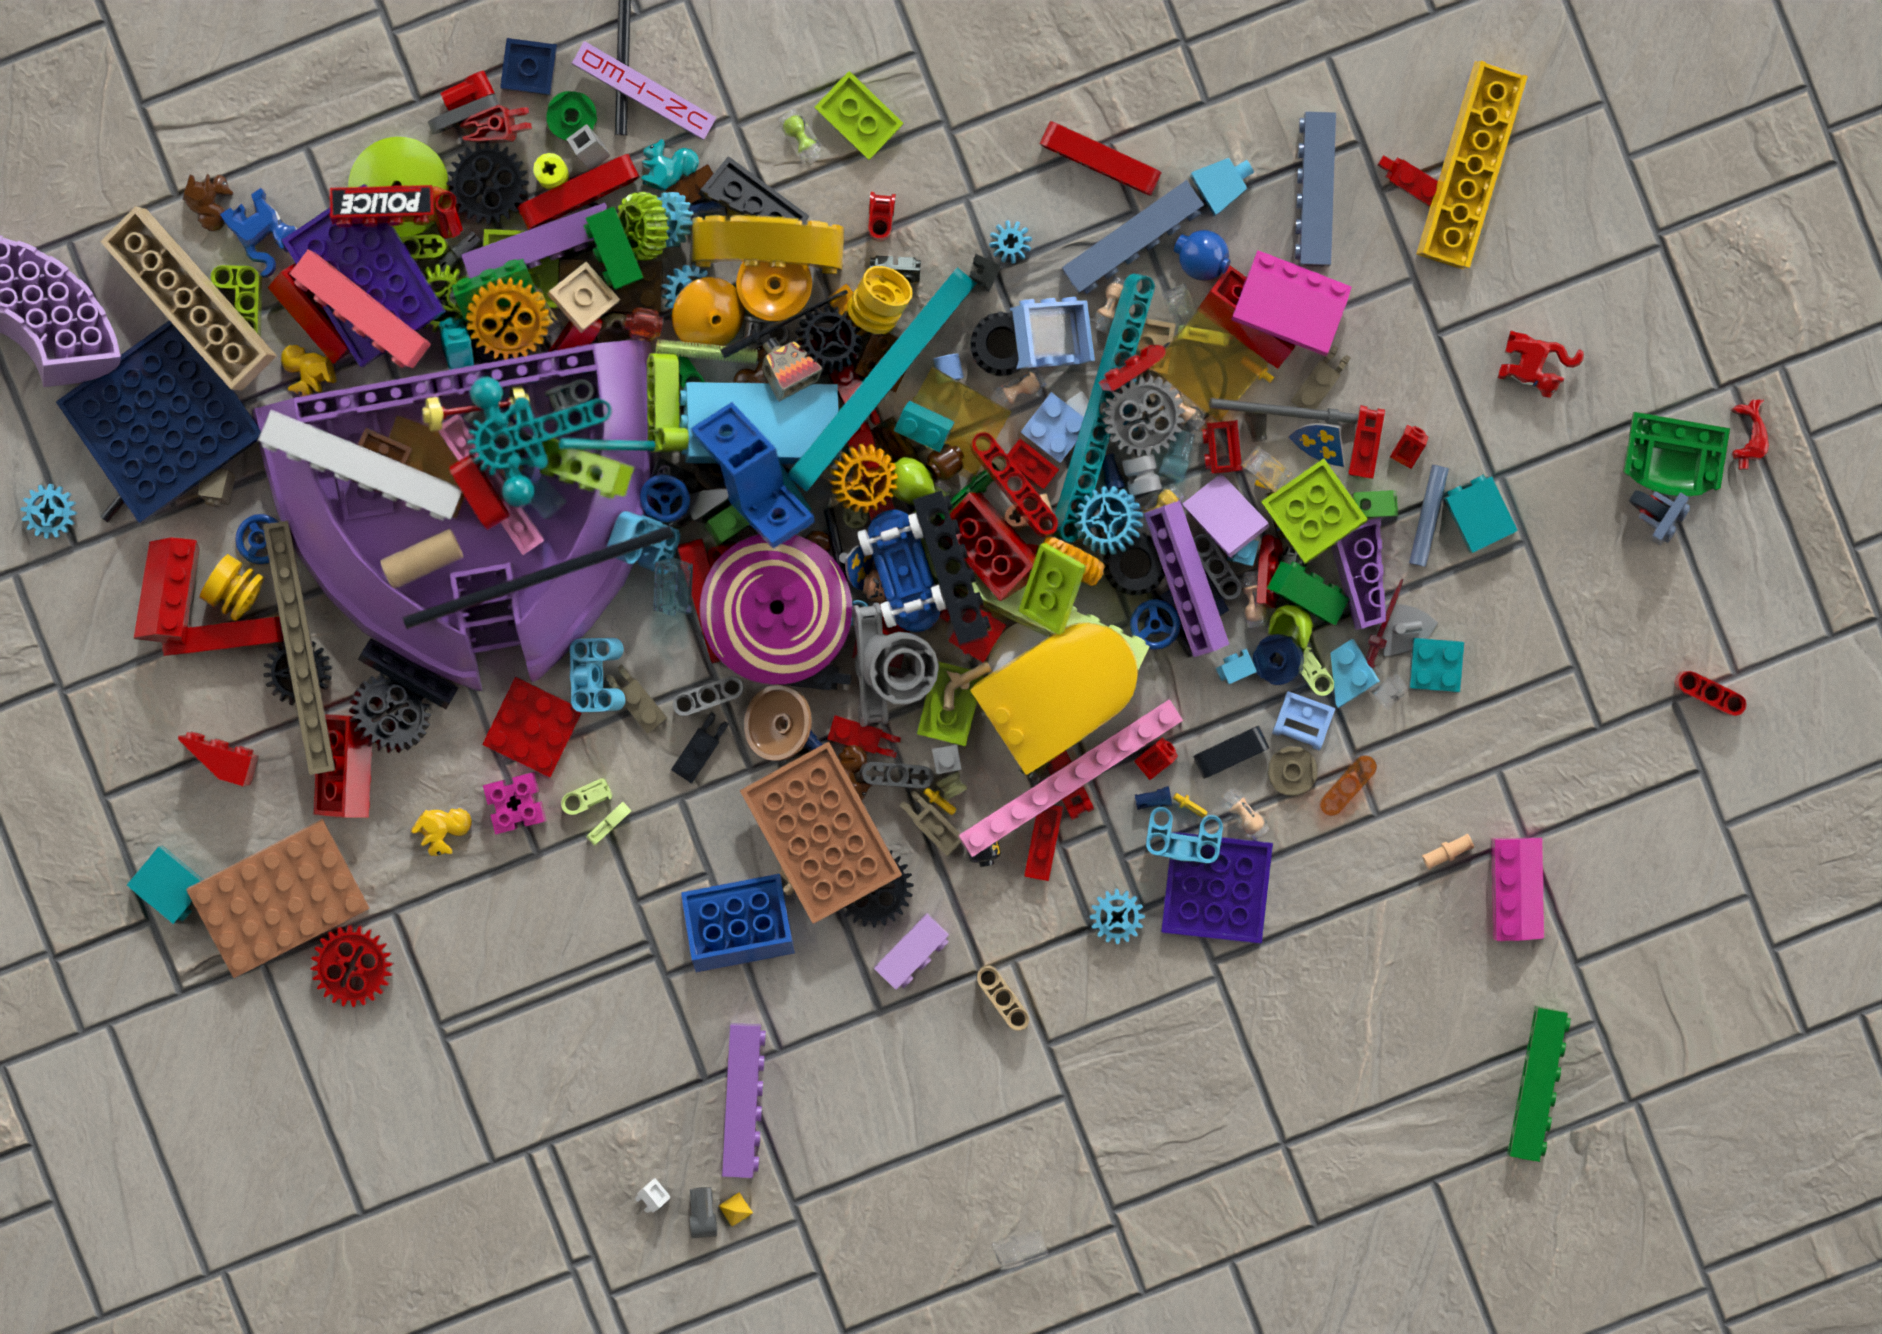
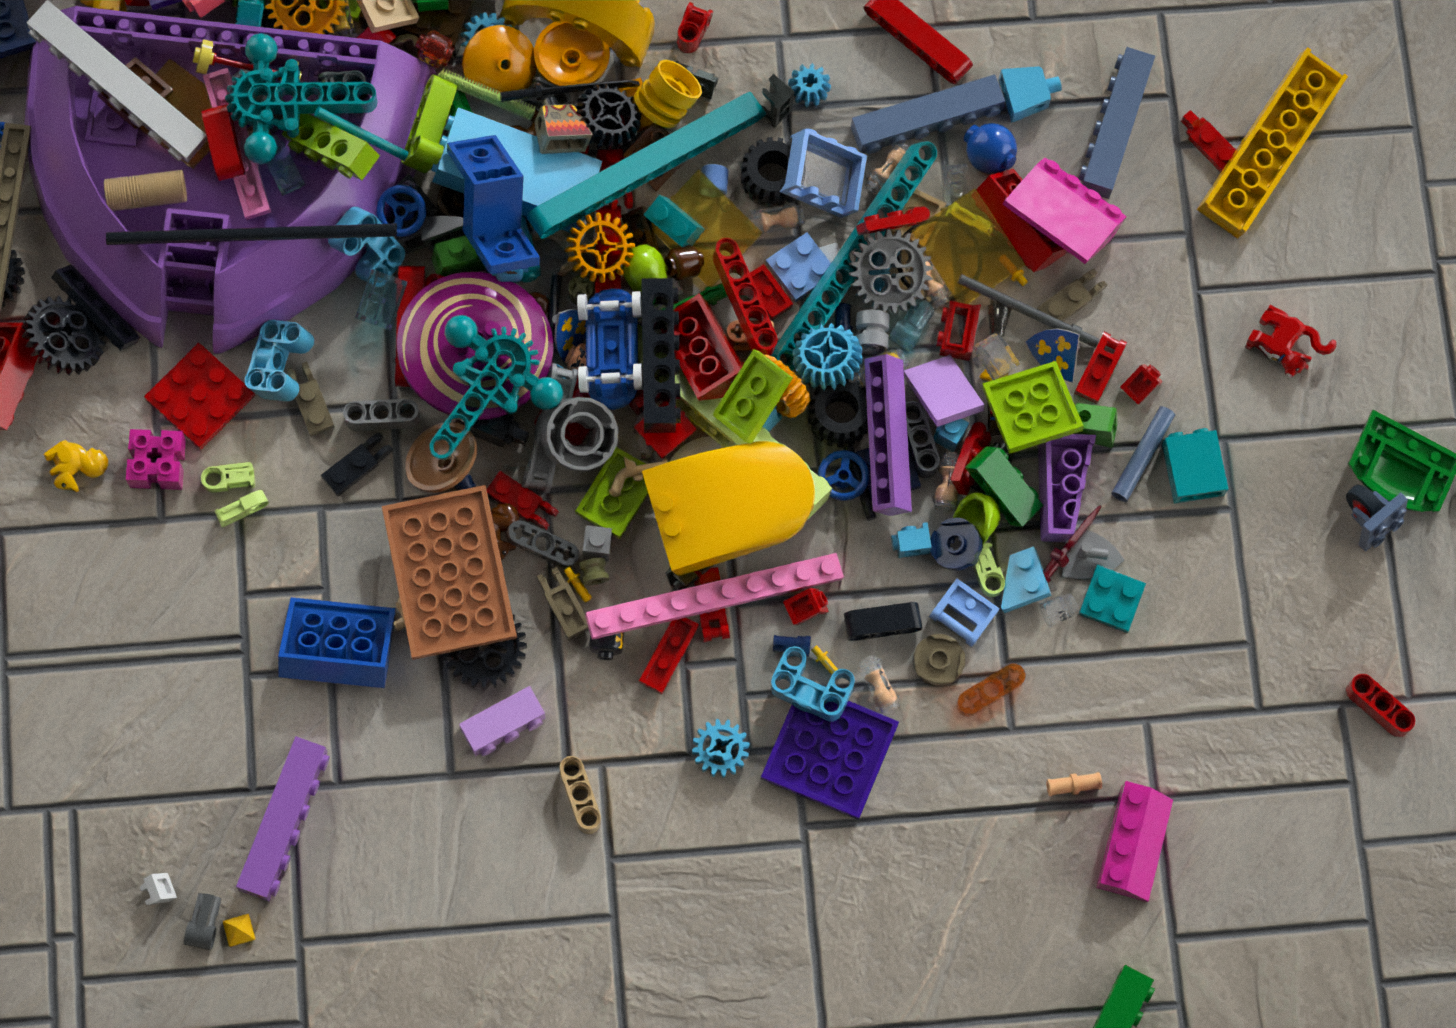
camera: 10 degrees right, 15 degrees down
(764, 612) = (462, 333): none -> teal piece

